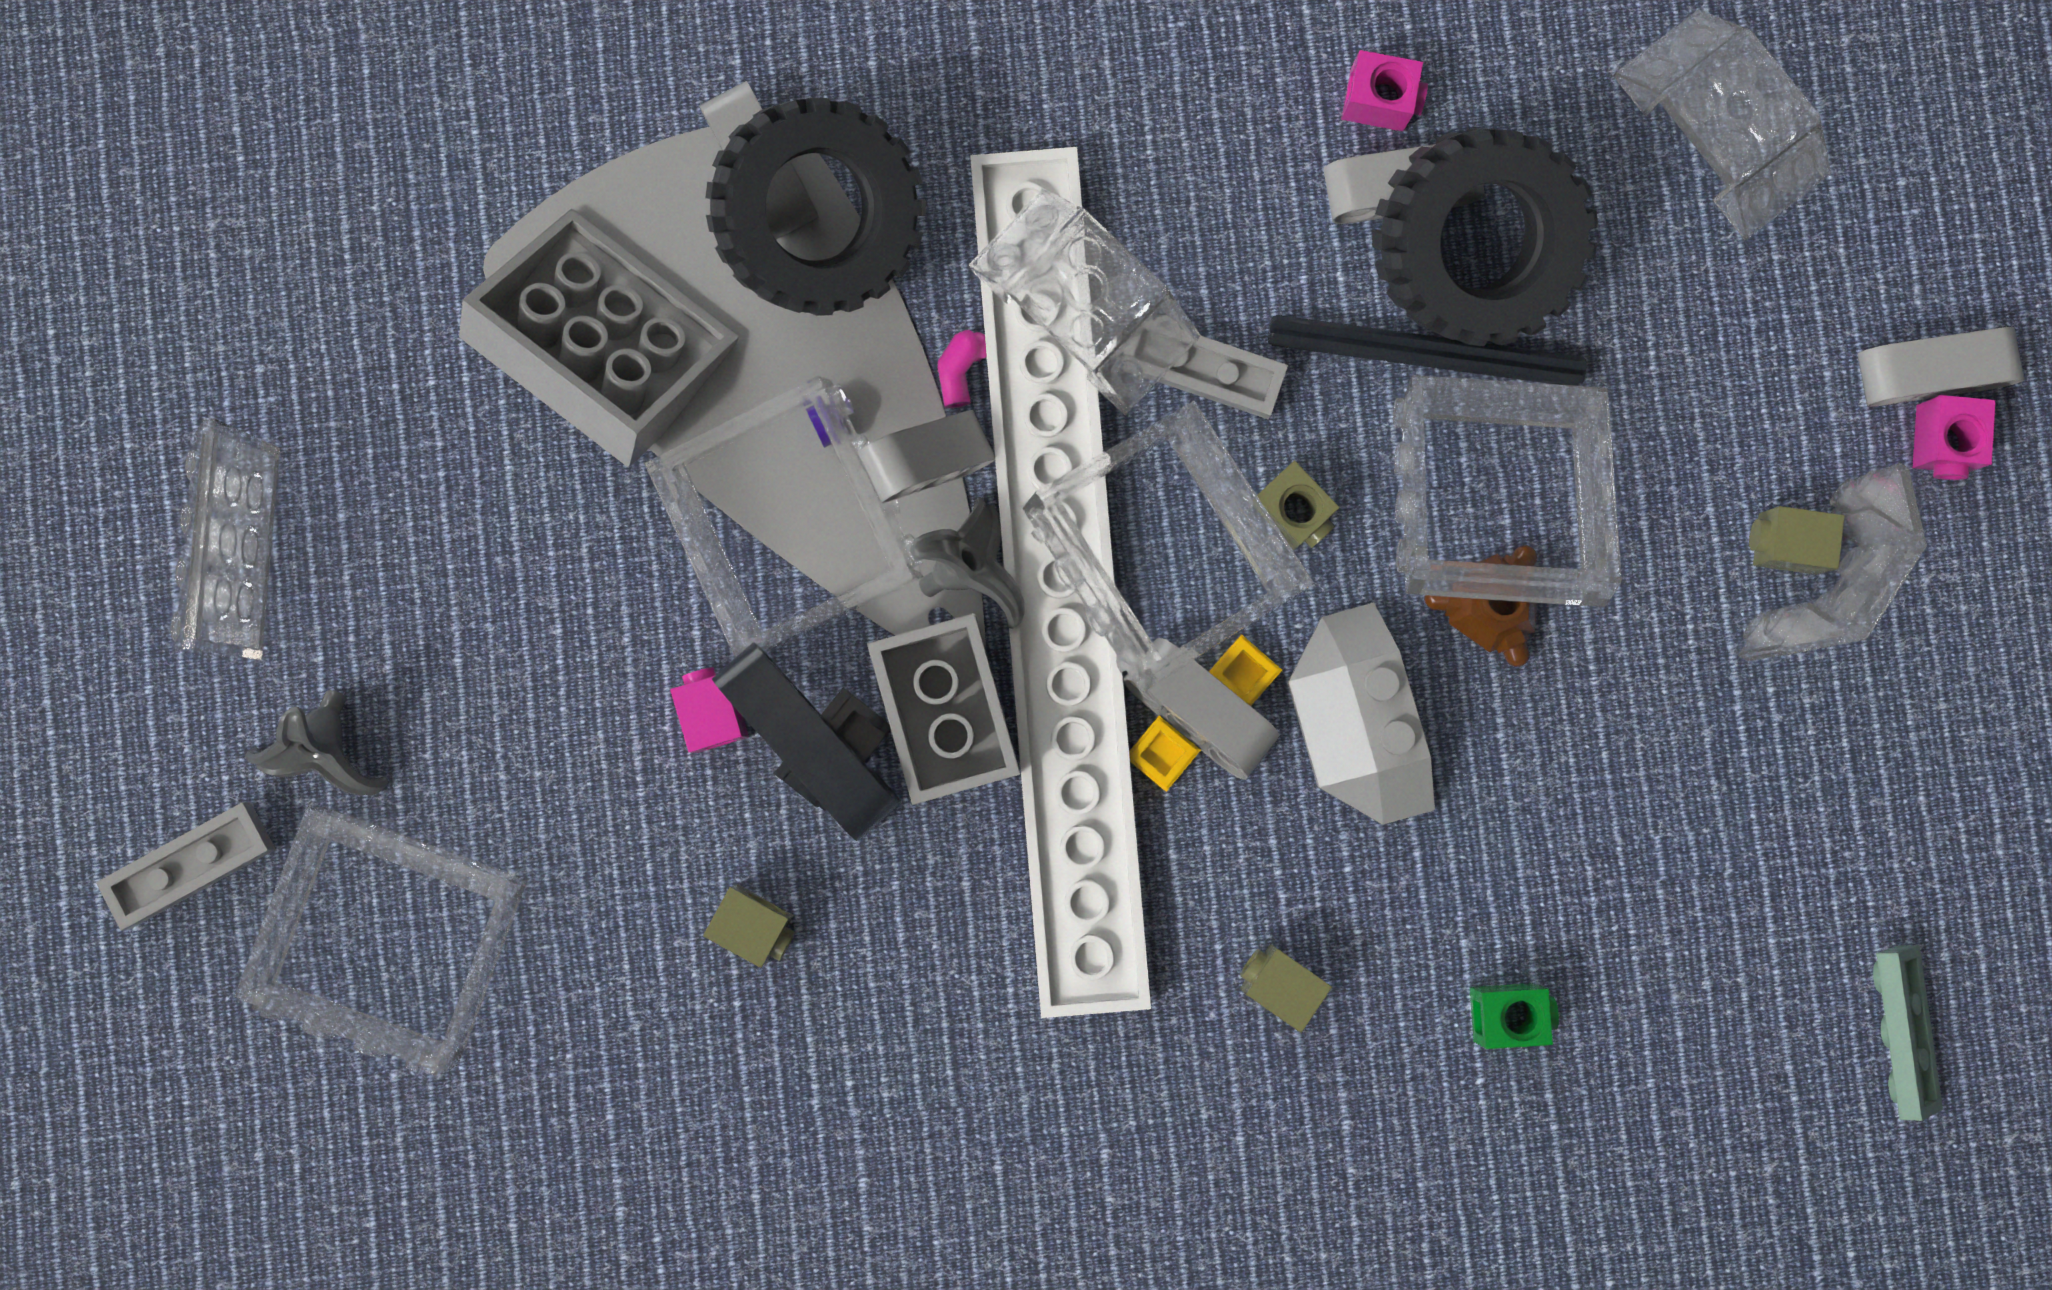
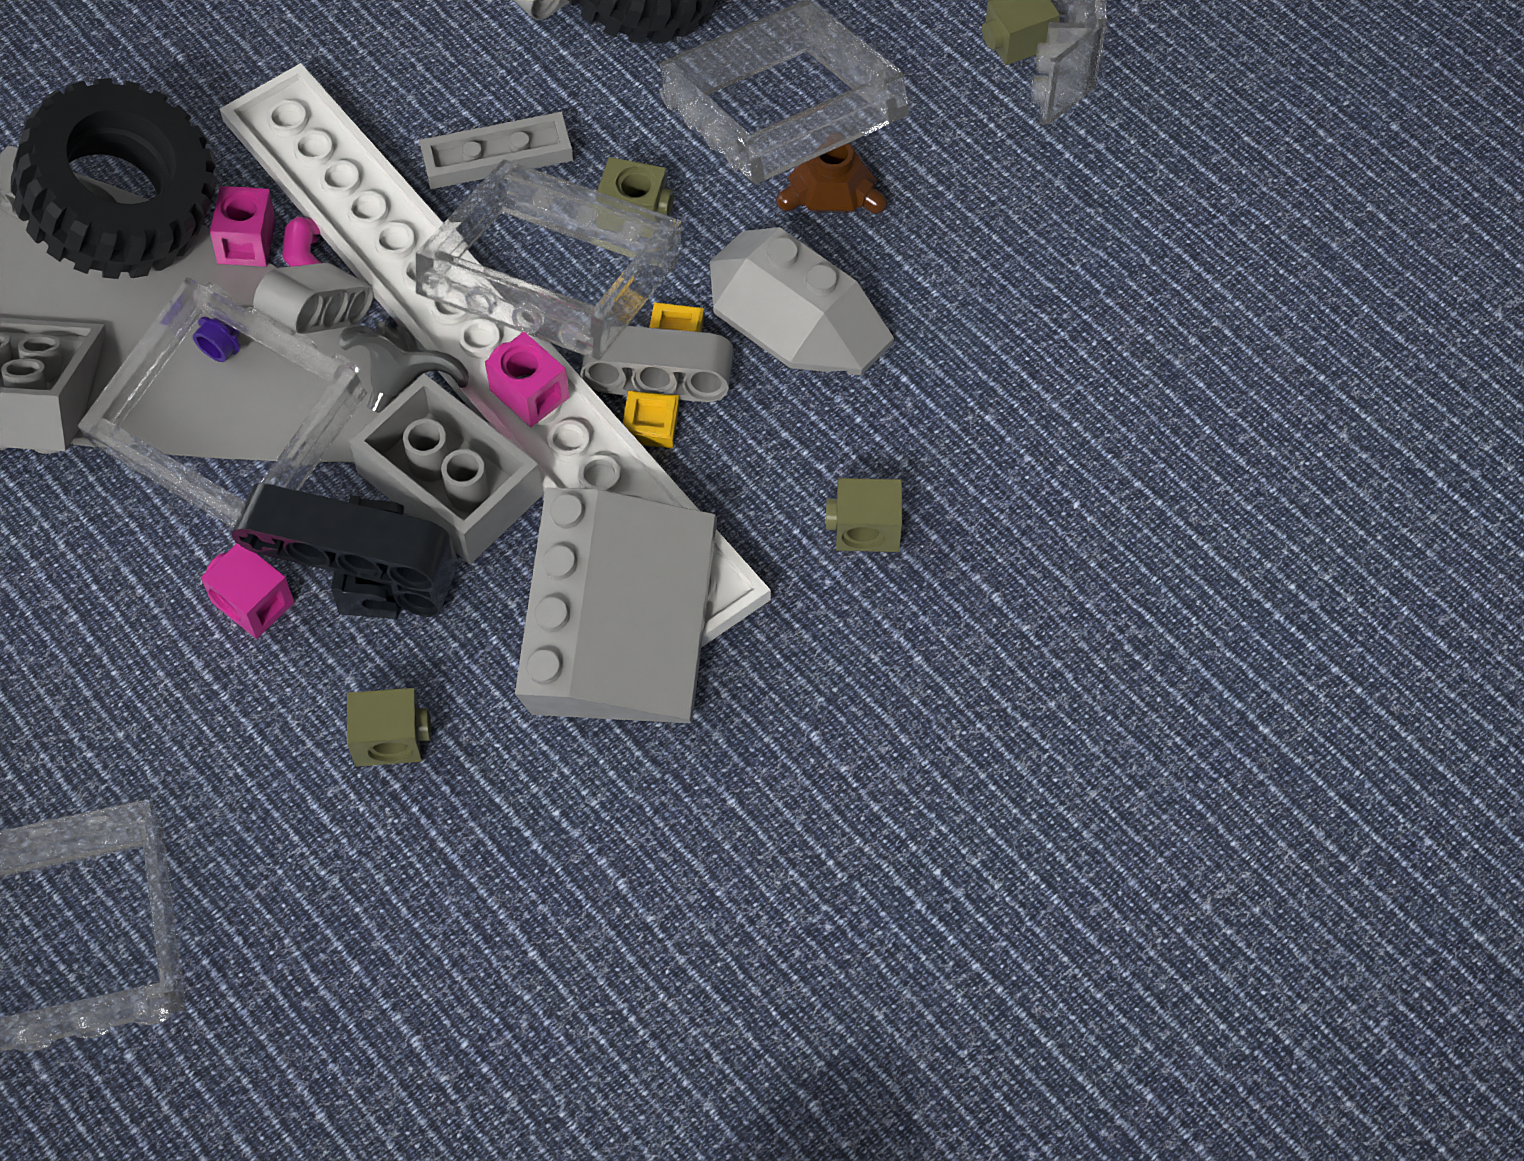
camera: 30 degrees left, 25 degrees down
(915, 332) = (243, 226): none -> dark pink brick
(1005, 951) = (616, 608): none -> light grey slope
(1067, 690) = (531, 396): none -> dark pink brick
(1088, 296) = (377, 123): clear slope -> none
(1426, 351) = (634, 66): black axle -> none
(1489, 1011) = (1055, 450): green brick -> none
(1908, 1032) = (1359, 276): sand green plate -> none

